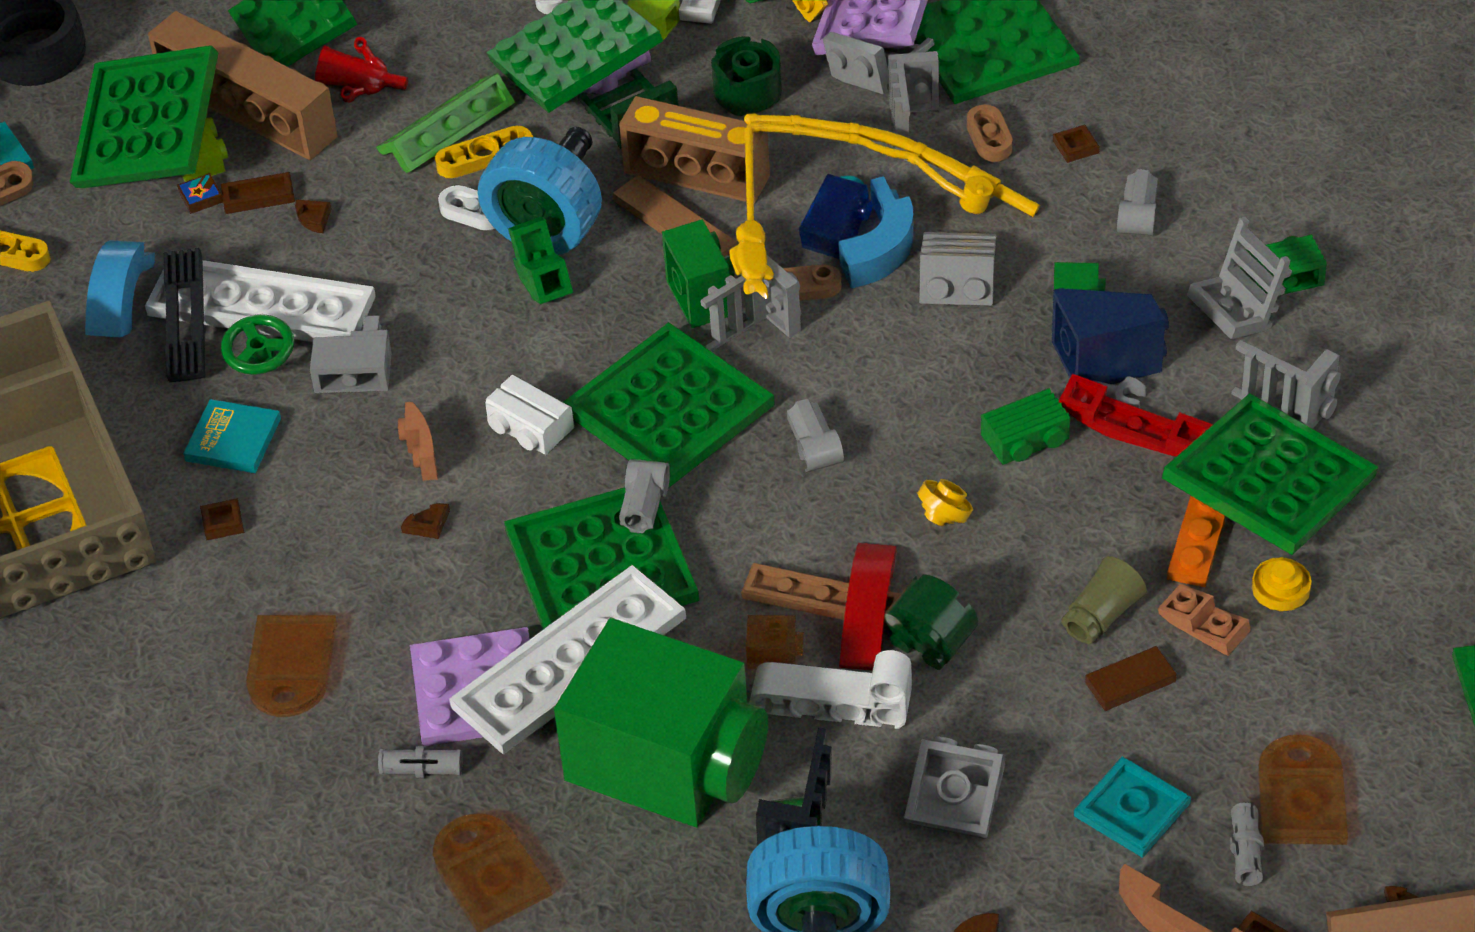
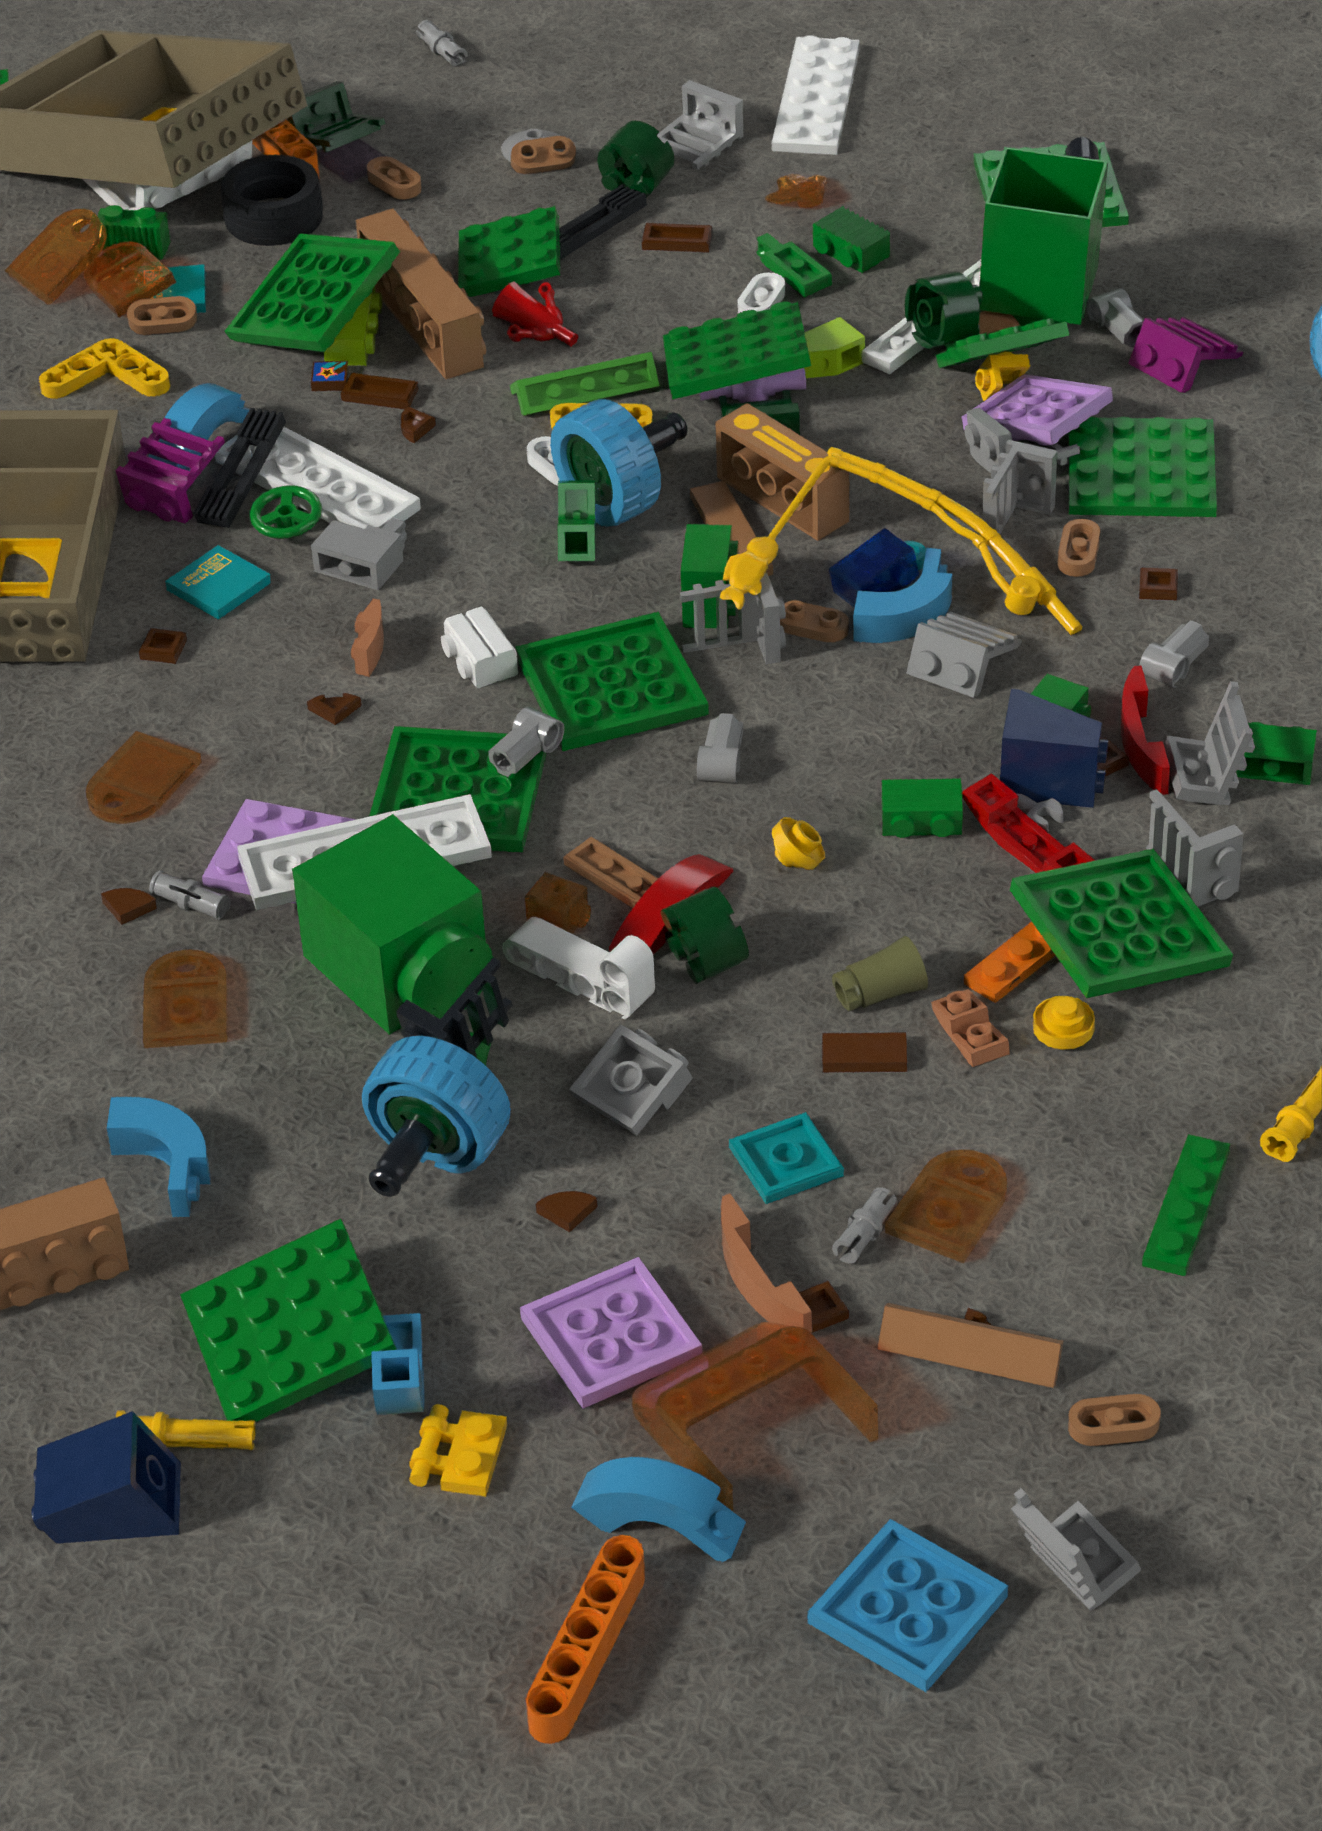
camera: 25 degrees right, 5 degrees down
(119, 360) = (161, 486): none -> magenta plate
(365, 793) = (128, 903): none -> reddish brown tile
(746, 75) = (881, 424): dark green brick -> none
(1185, 312) = (1146, 758): none -> red slope

